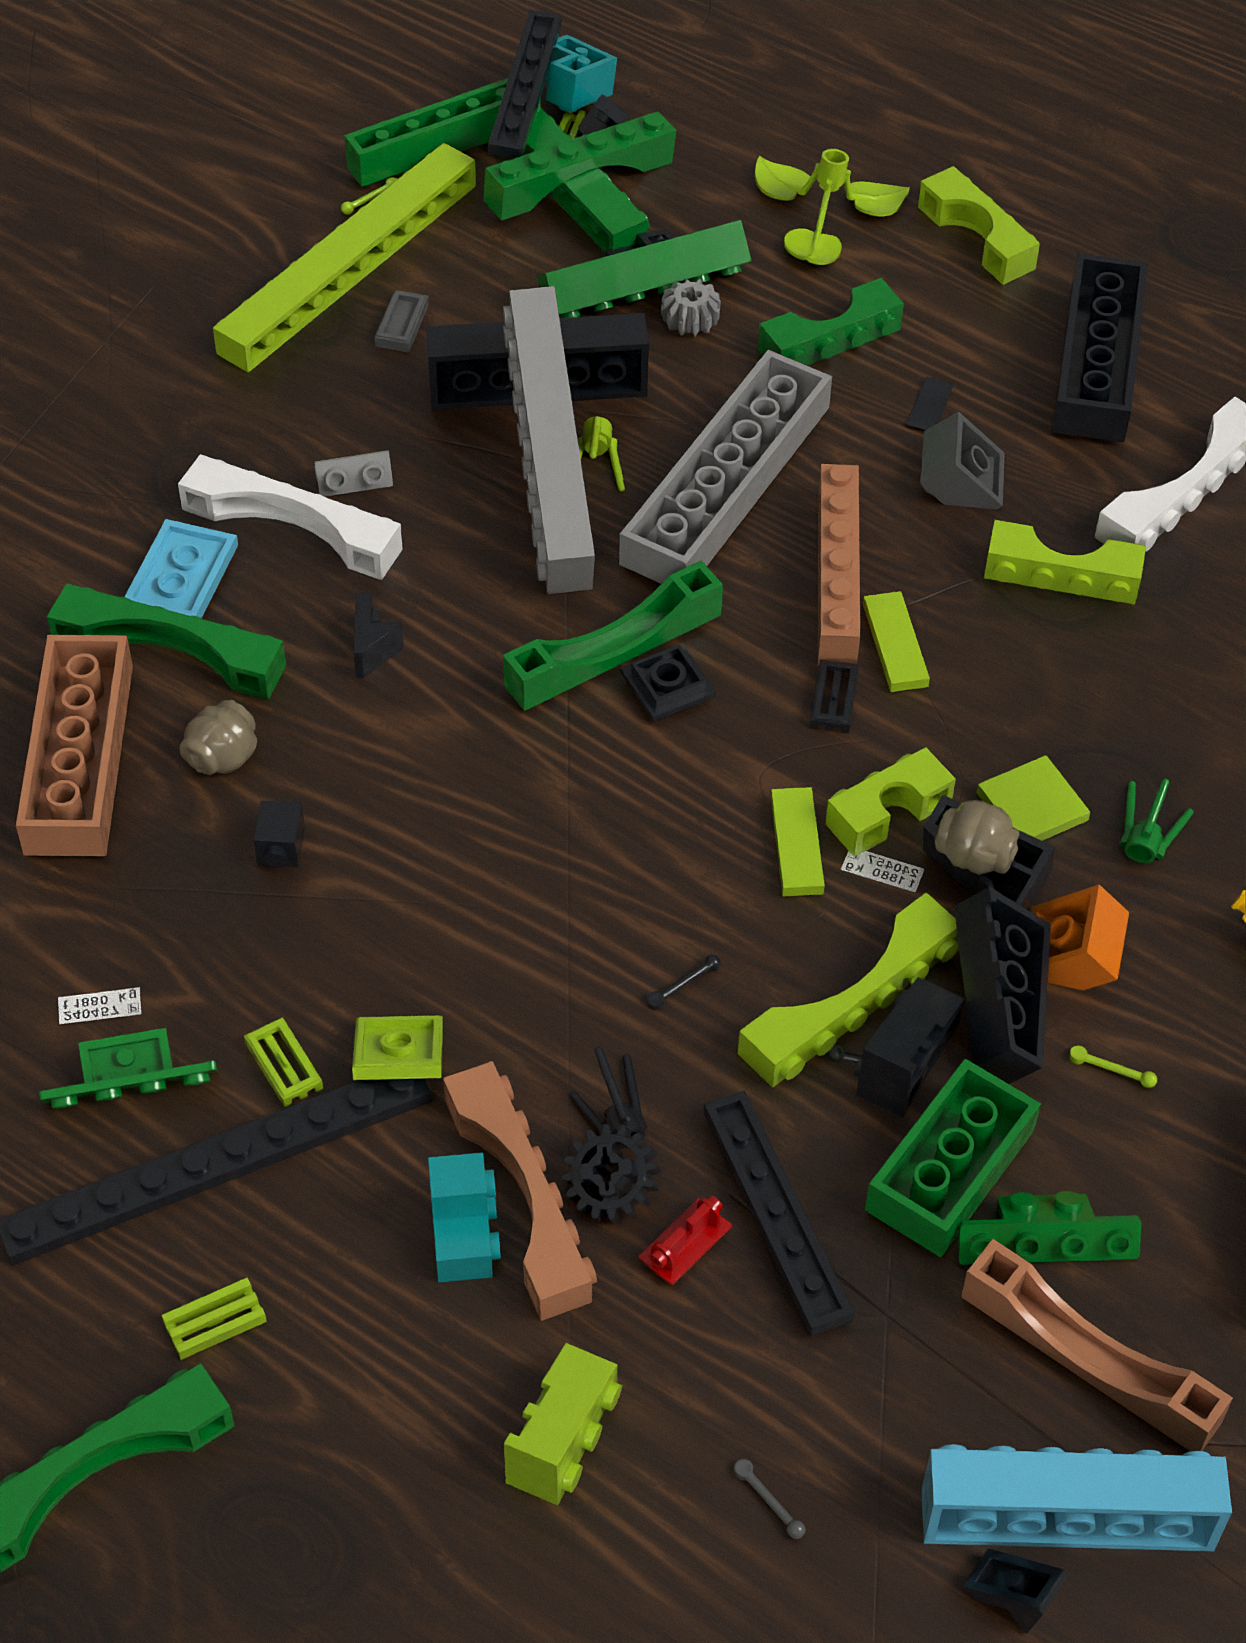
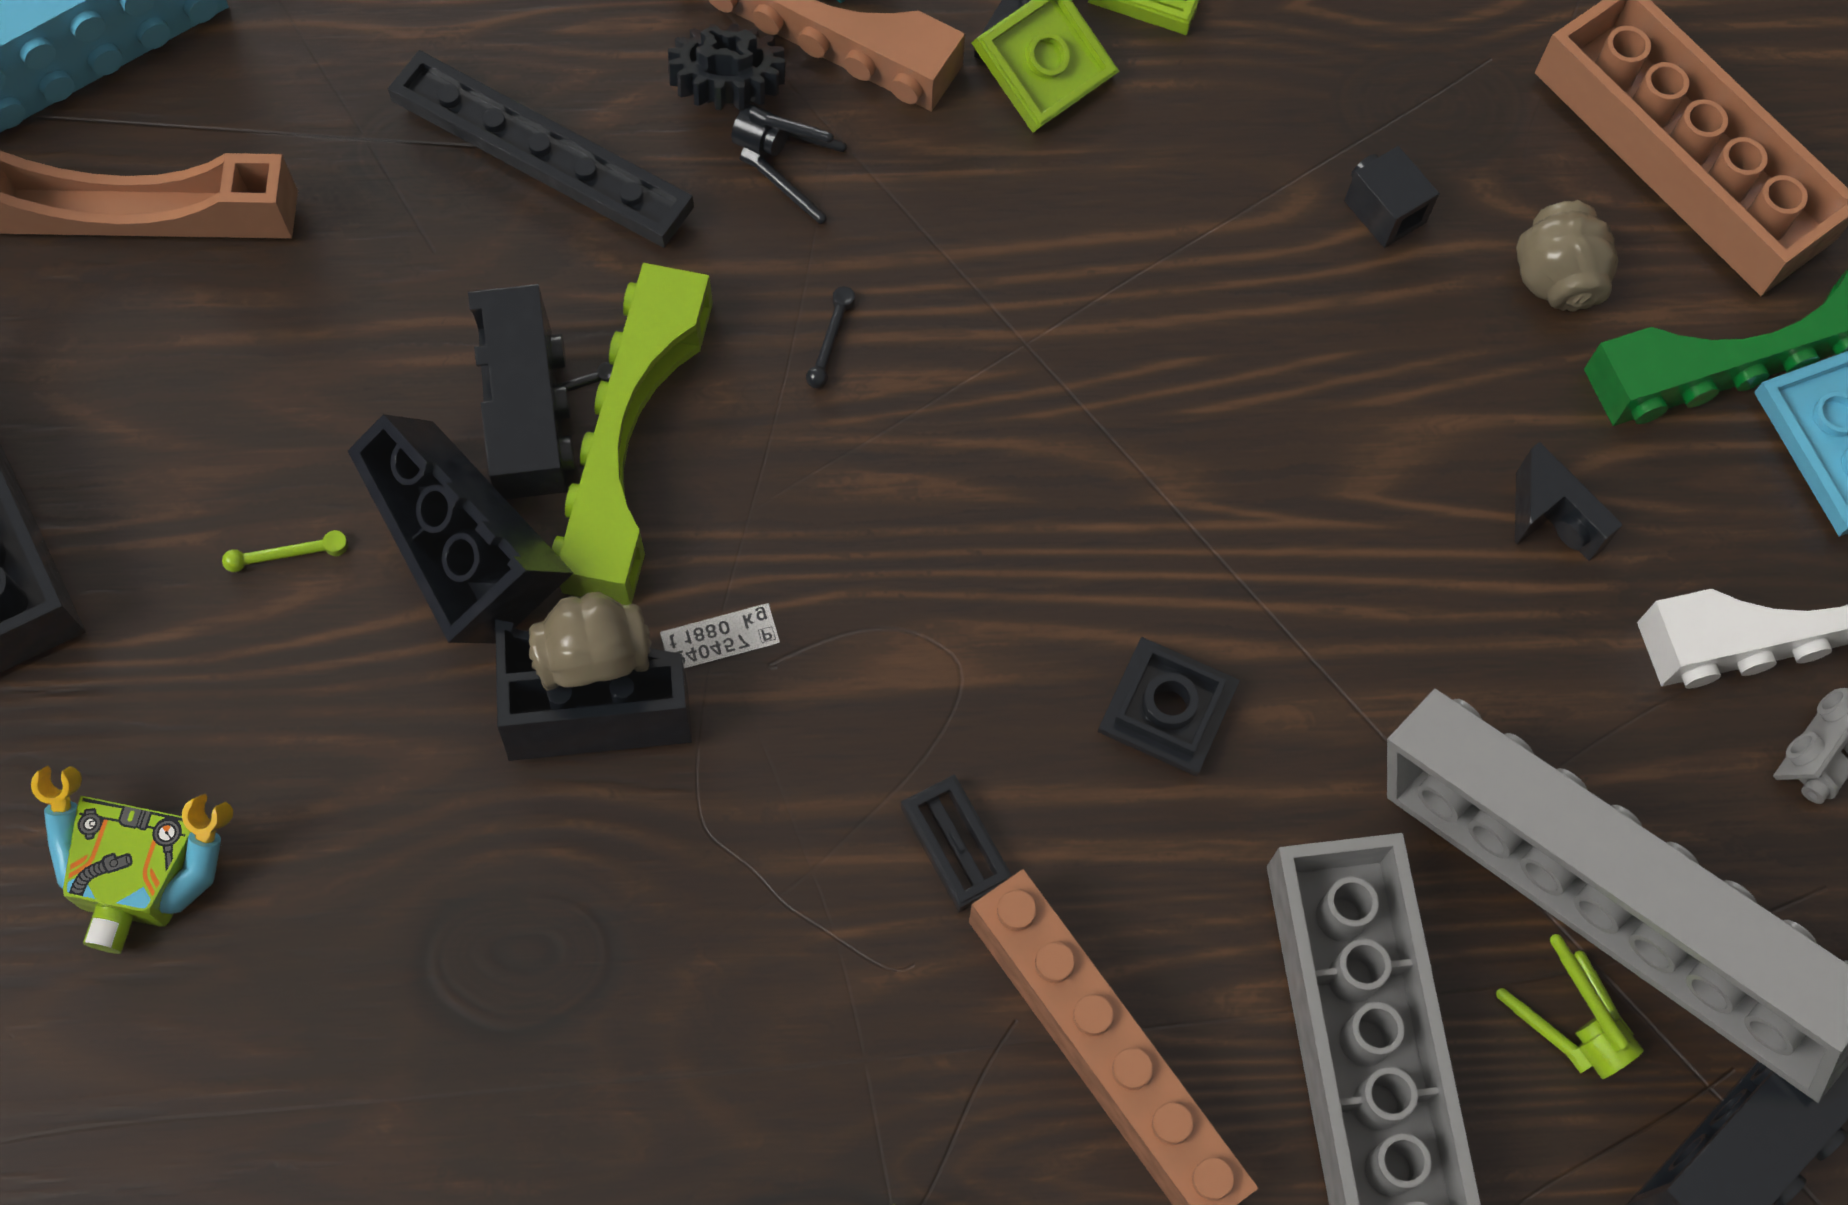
camera: 140 degrees right, 15 degrees up
(554, 666) = (1279, 704): green arch -> none
(686, 1240) = (610, 66): red hinge -> none
(797, 842) = (842, 594): lime tile -> none
(896, 641) = (945, 992): lime tile -> none
(913, 783) = (754, 761): lime arch -> none
(952, 1157) = (385, 296): green brick -> none
(1036, 799) = (597, 854): lime tile -> none
(1051, 1230) = (251, 310): green bracket -> none
(1084, 937) = (408, 674): orange slope -> none
(1144, 840) = (415, 890): green plant -> none

